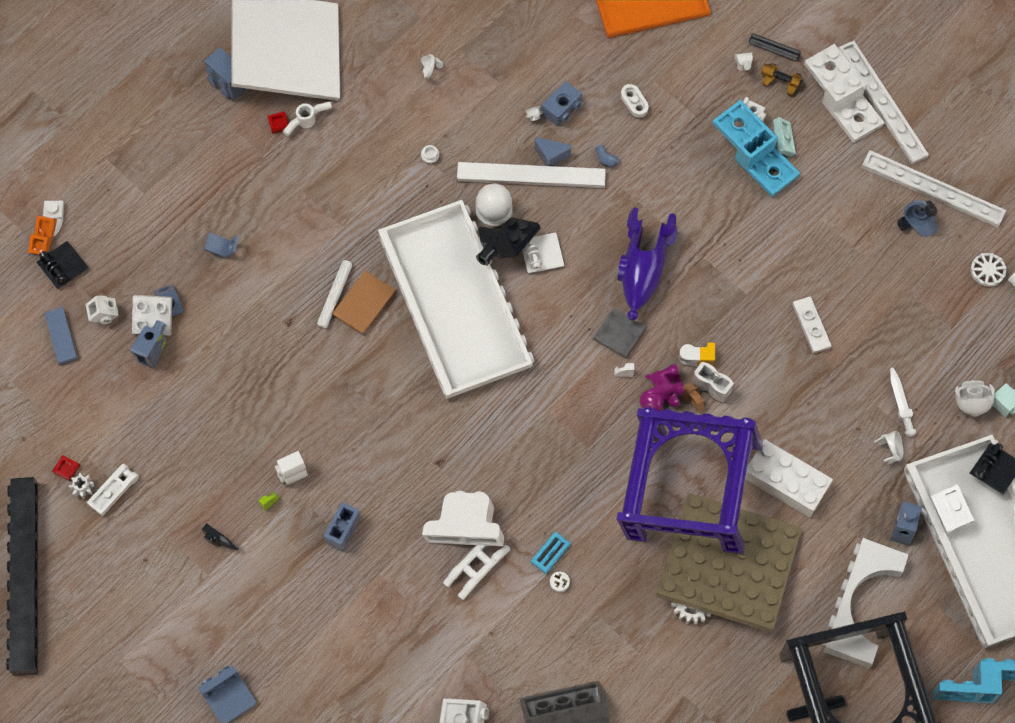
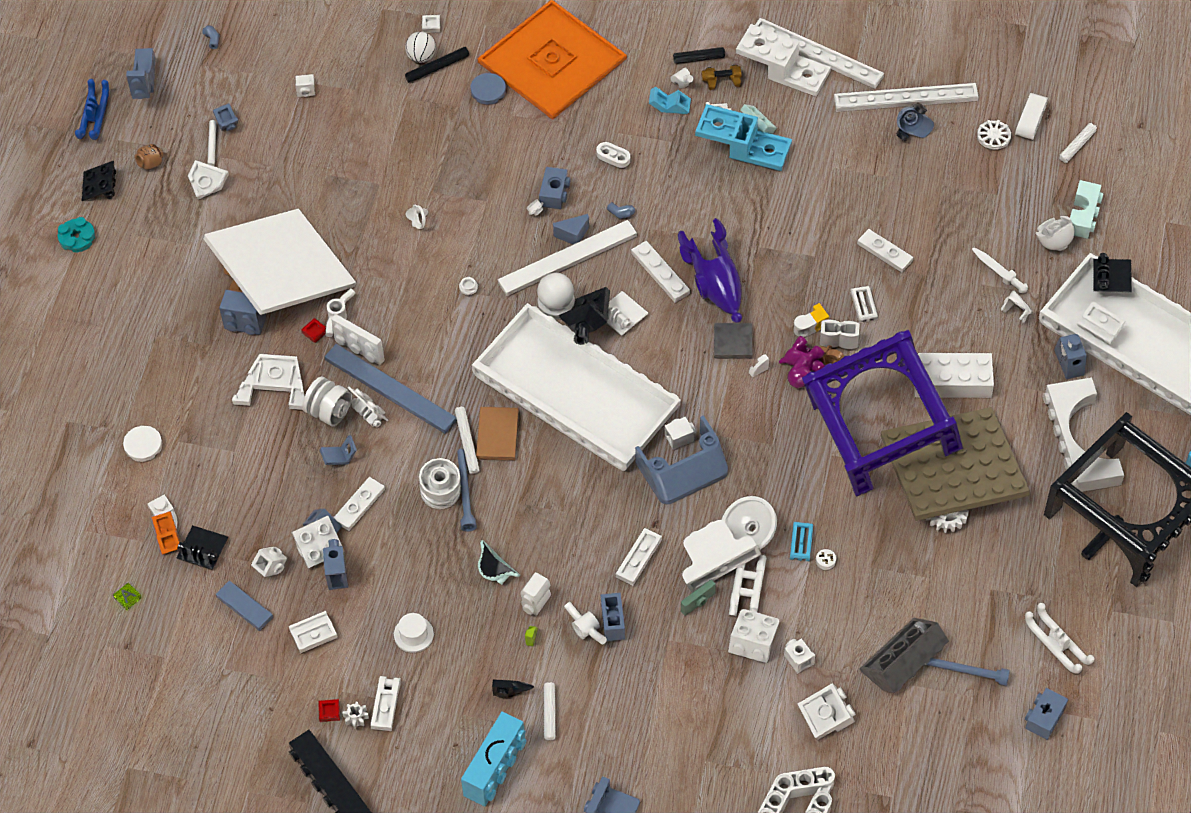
camera: 30 degrees left, 10 degrees down
(76, 145) = (142, 443): none -> white tile
(97, 392) = (313, 632): none -> white plate
(159, 594) = (493, 759): none -> medium azure brick
(177, 441) = (413, 633): none -> white piece
(210, 299) = (359, 503): none -> white plate
(219, 144) = (275, 374): none -> white wing
(237, 577) = (549, 711): none -> white axle
(240, 194) = (327, 401): none -> white wheel
(272, 217) = (365, 407): none -> white hinge
(279, 420) = (493, 566): none -> hat
(281, 321) = (440, 483): none -> white wheel
(285, 369) = (468, 522): none -> sand blue piece
(301, 152) = (357, 340): none -> white plate
(304, 211) = (390, 388): none -> sand blue tile
(317, 519) = (585, 624): none -> white piece
(403, 484) = (638, 556): none -> white plate
(426, 552) = (698, 597): none -> sand green plate
(448, 613) = (753, 635): none -> white bracket
(475, 662) = (801, 660): none -> white brick
(496, 436) = (688, 474): none -> sand blue windscreen
(510, 503) = (751, 513): none -> white dish
(514, 392) = (679, 432): none -> white brick
(601, 233) = (660, 271): none -> white plate
(720, 80) = (673, 103): none -> medium azure slope
(752, 378) = (866, 316): none -> white tile

